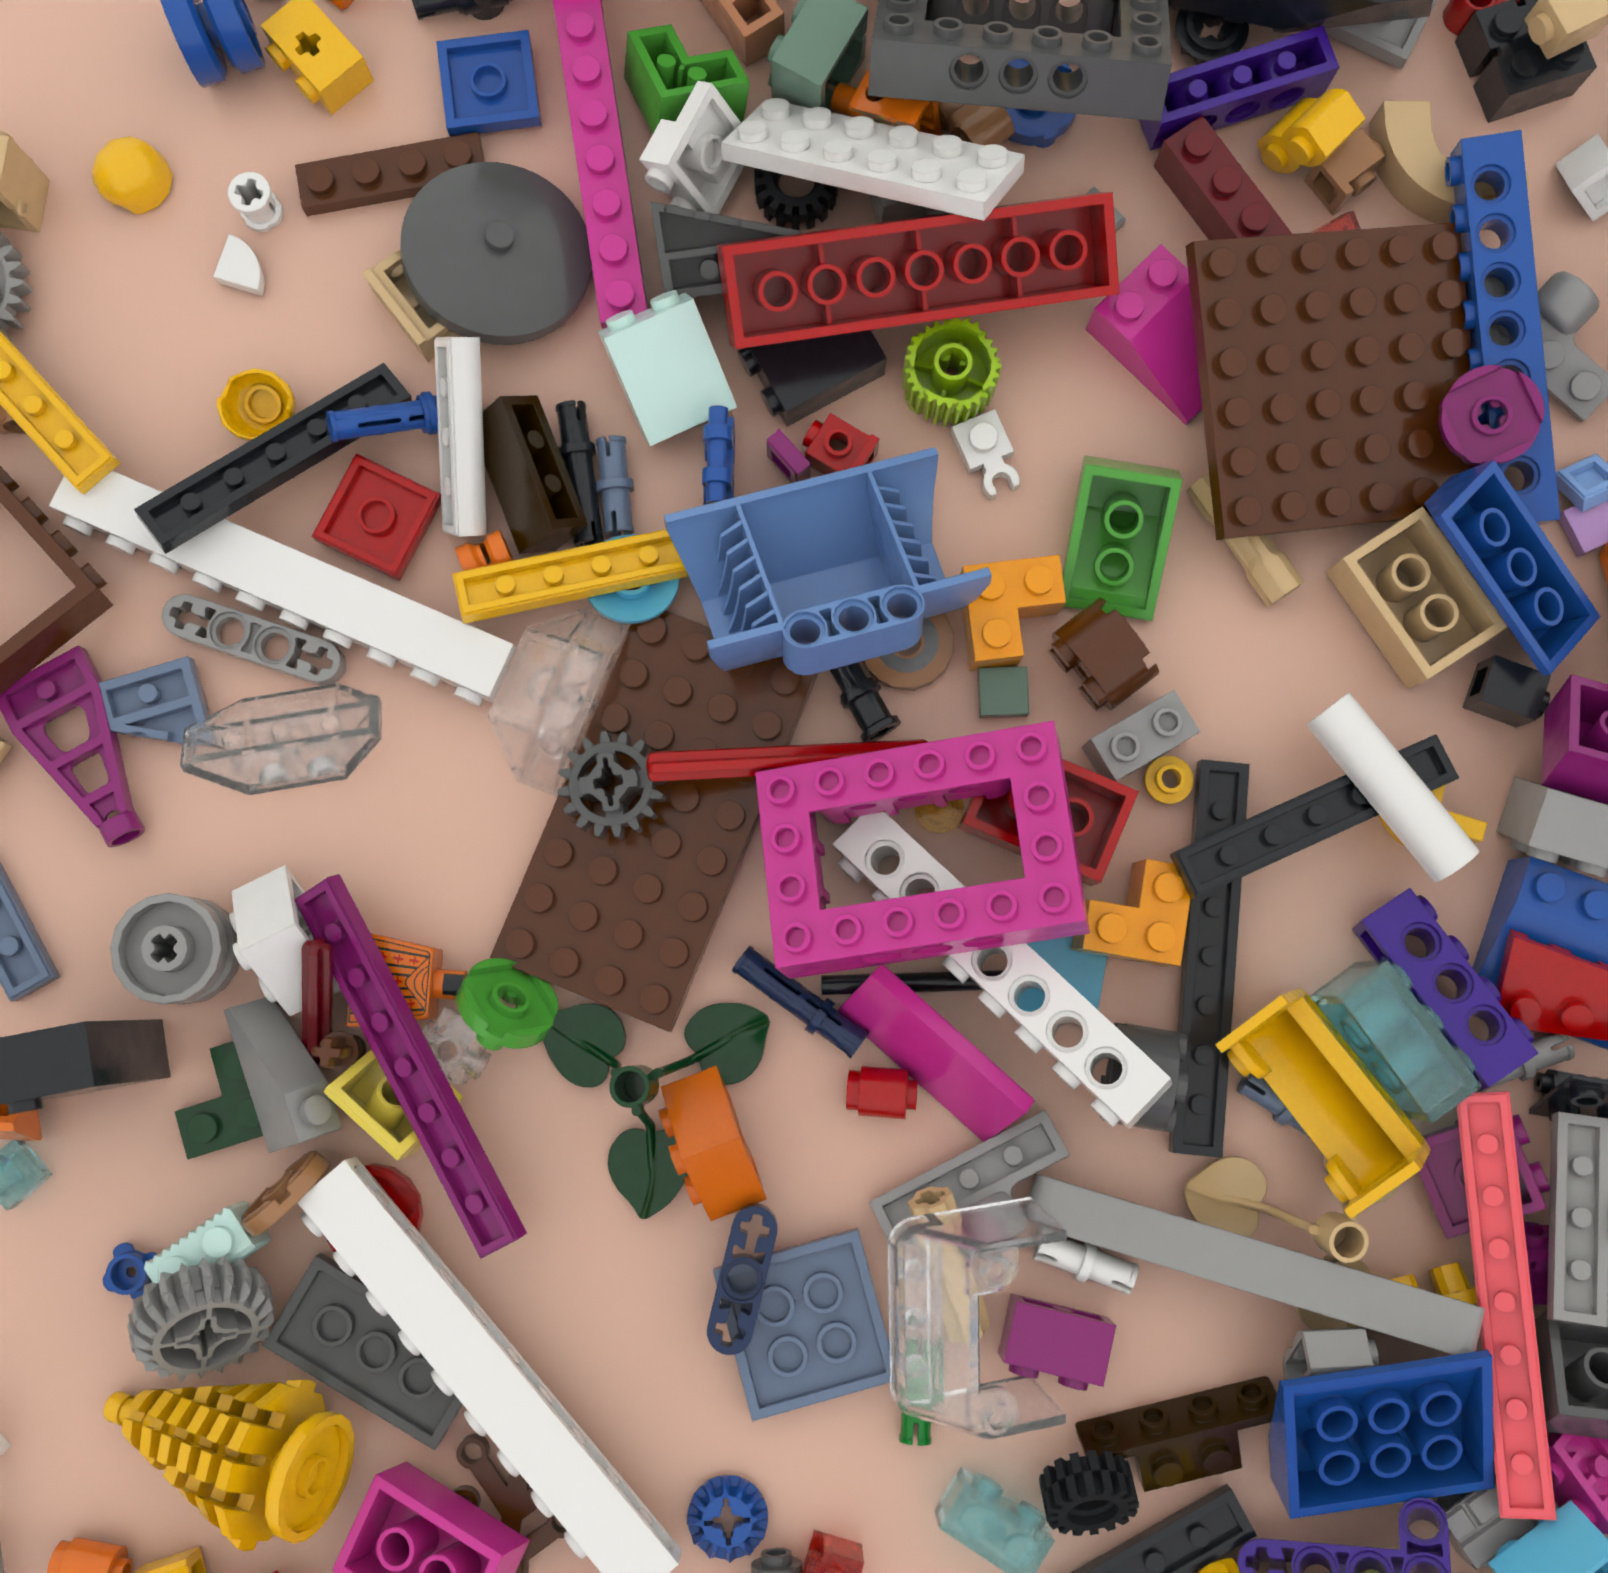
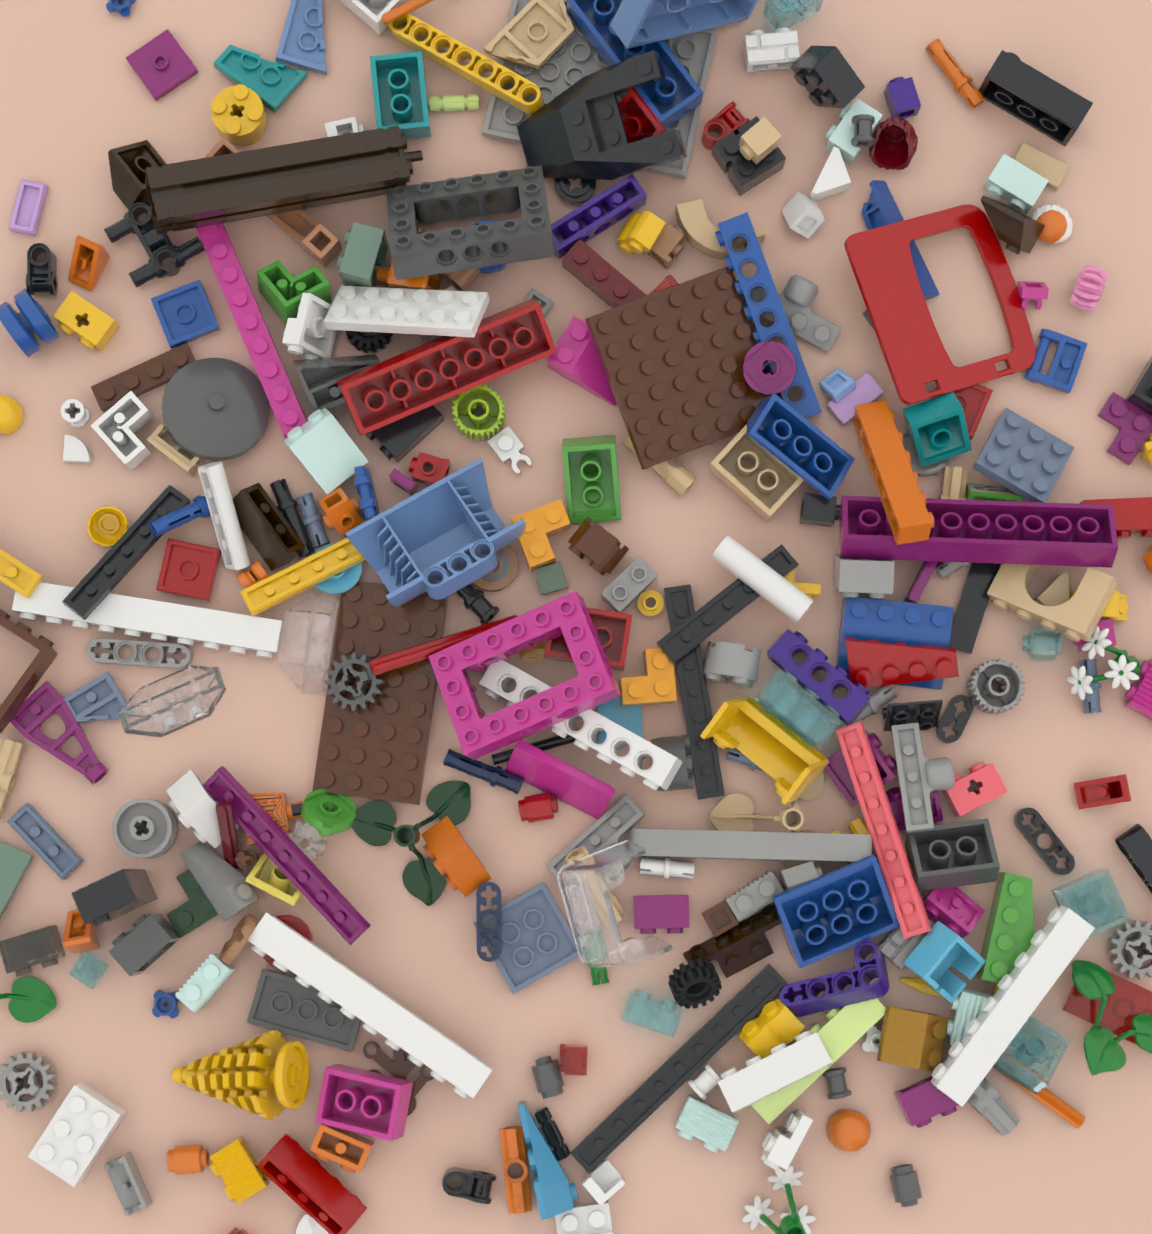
camera: 15 degrees left, 0 degrees up
(113, 1157) = (144, 944): none -> dark grey brick
(200, 1318) = (213, 1013): light grey gear -> none
(322, 243) = (119, 427): none -> white brick
(665, 480) = (340, 511): none -> orange brick
(744, 1501) = (501, 1043): blue gear -> none
(1160, 1381) = (719, 918): none -> reddish brown tile
(1232, 1356) = (754, 896): none -> light grey brick
(1294, 923) = (731, 662): none -> light grey brick

